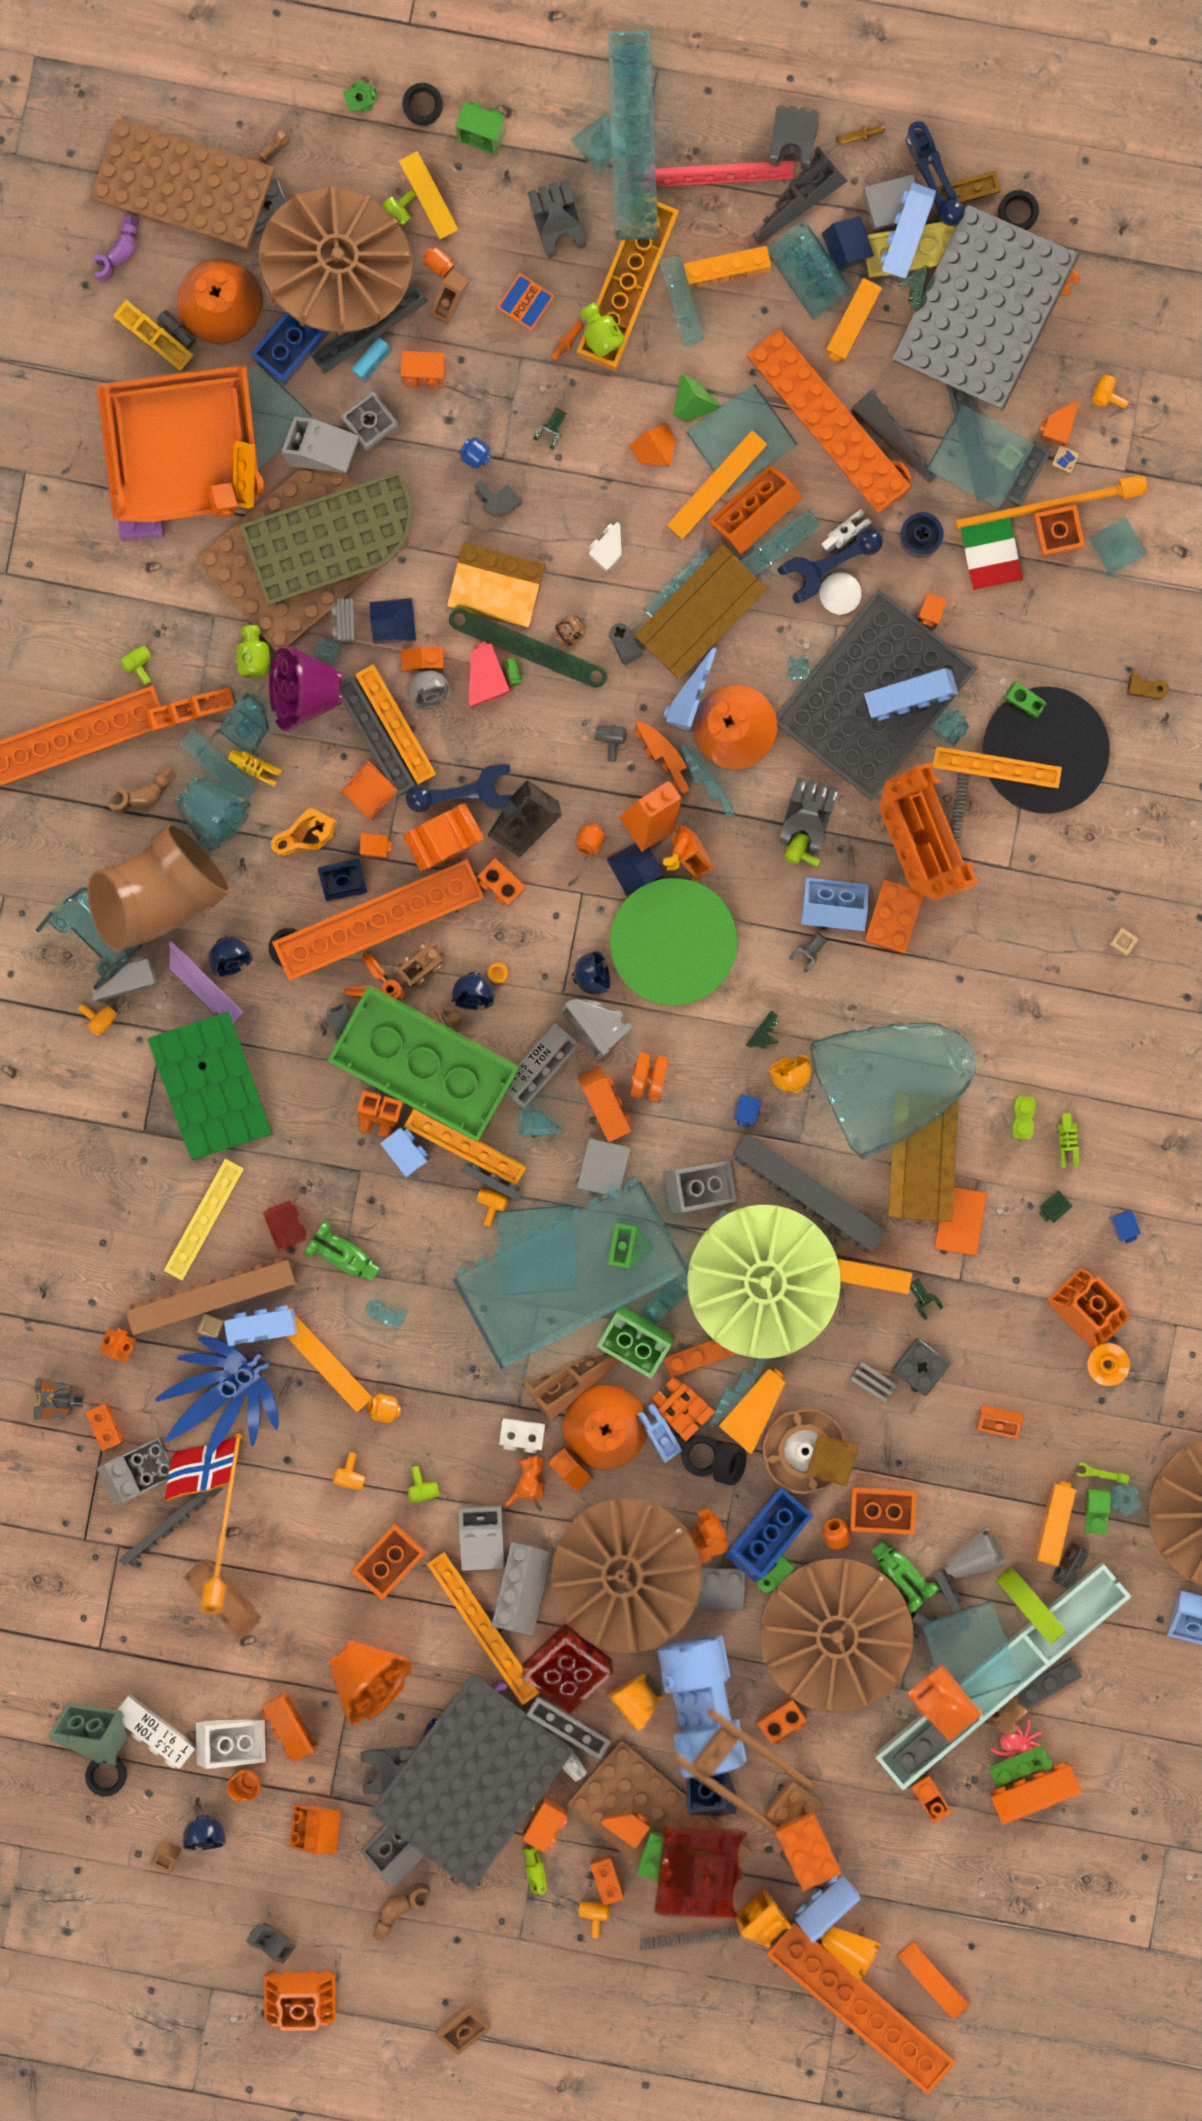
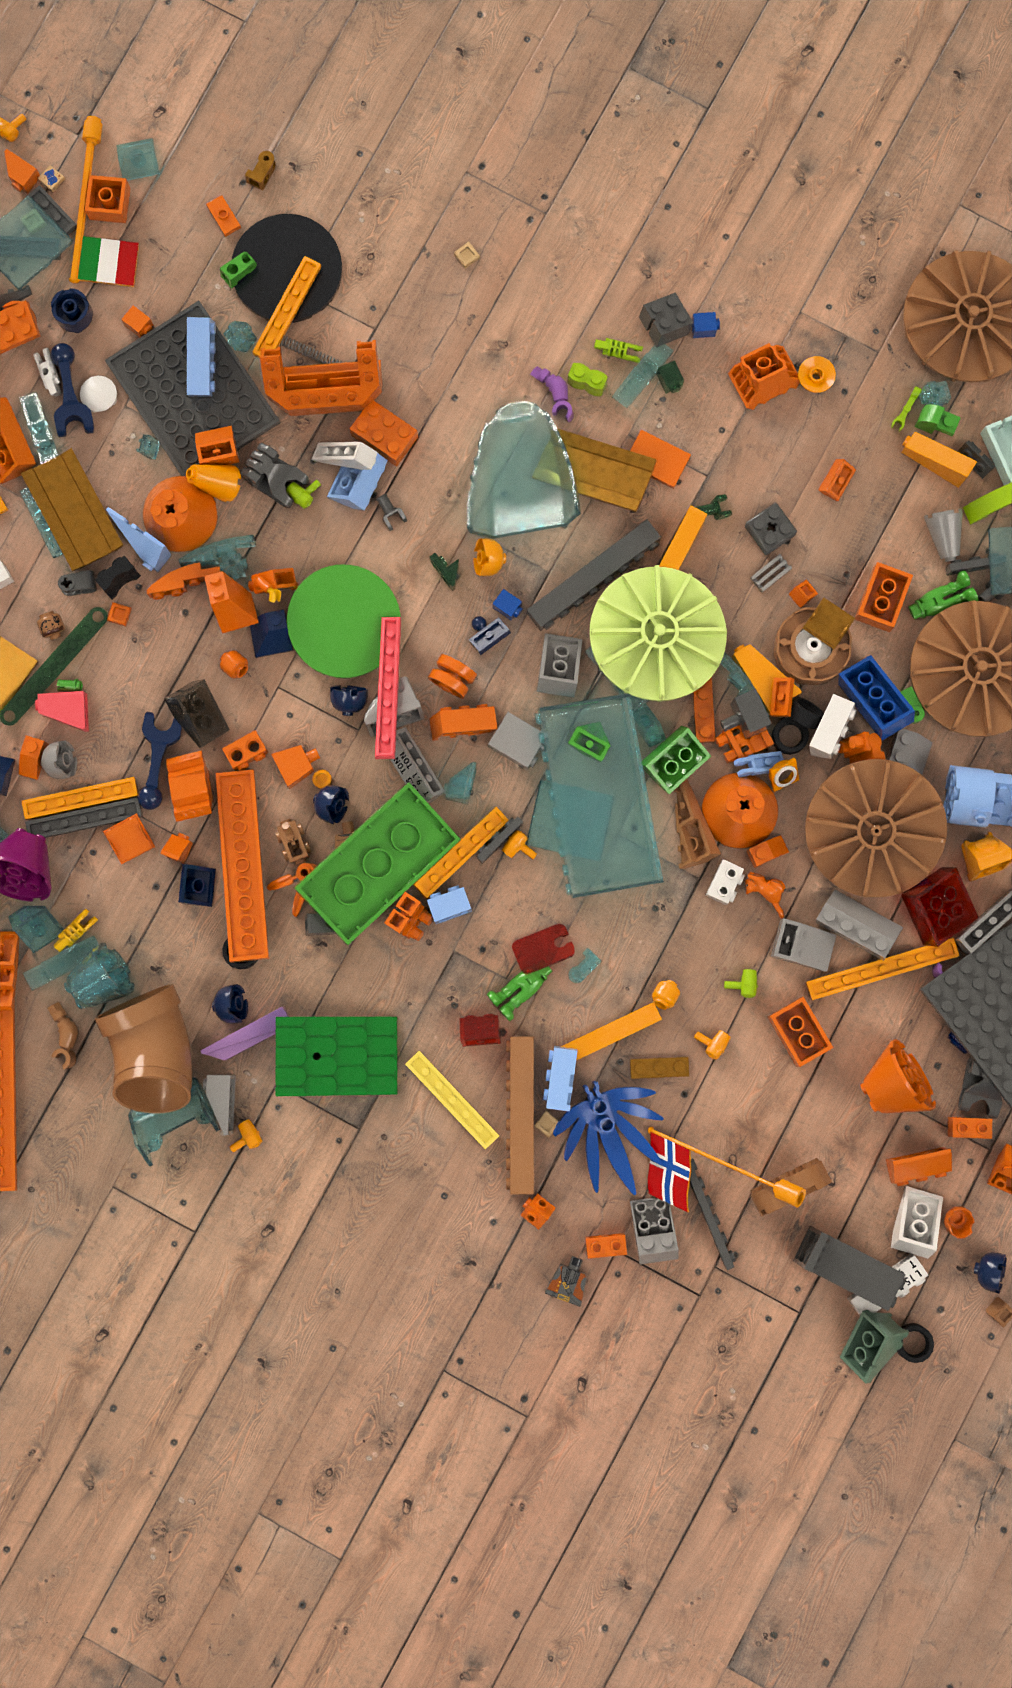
camera: 70 degrees left, 5 degrees down
(159, 1684) = (849, 1268): none -> dark grey brick
(296, 833) = (144, 913): light orange piece -> none
(306, 1425) = (659, 1067): none -> pearl gold plate
(345, 1768) = (969, 1127): none -> orange brick
(389, 1259) = (539, 951): none -> clear red piece
(504, 940) = (295, 764): none -> orange torso
(606, 698) = (119, 614): none -> orange tile
(612, 735) = (152, 618): dark grey piece -> none
(613, 1014) = (388, 688): none -> coral tile
(636, 678) = (116, 576): none -> black brick
(662, 1456) = (780, 767): none -> light orange piece
(696, 812) = (238, 570): none -> clear light blue brick
(703, 1404) = (748, 714): none -> dark grey brick
(708, 1100) = (487, 635): none -> plate
(721, 1498) = (832, 727): none -> white slope
(736, 1434) = (782, 697): none -> orange plate
(781, 756) = (216, 480): none -> light orange cone
(818, 743) = (217, 447): none -> orange slope
(836, 1533) = (891, 642): orange head -> none
(852, 884) = (345, 454): none -> white slope
(862, 1423) = (803, 593): none -> orange slope
(1004, 1088) = (558, 388): none -> medium lavender piece
(1049, 1175) = (642, 374): none -> clear light blue slope
(1083, 661) = (223, 215): none -> orange plate
(1117, 1185) = (670, 319): none -> dark grey piece

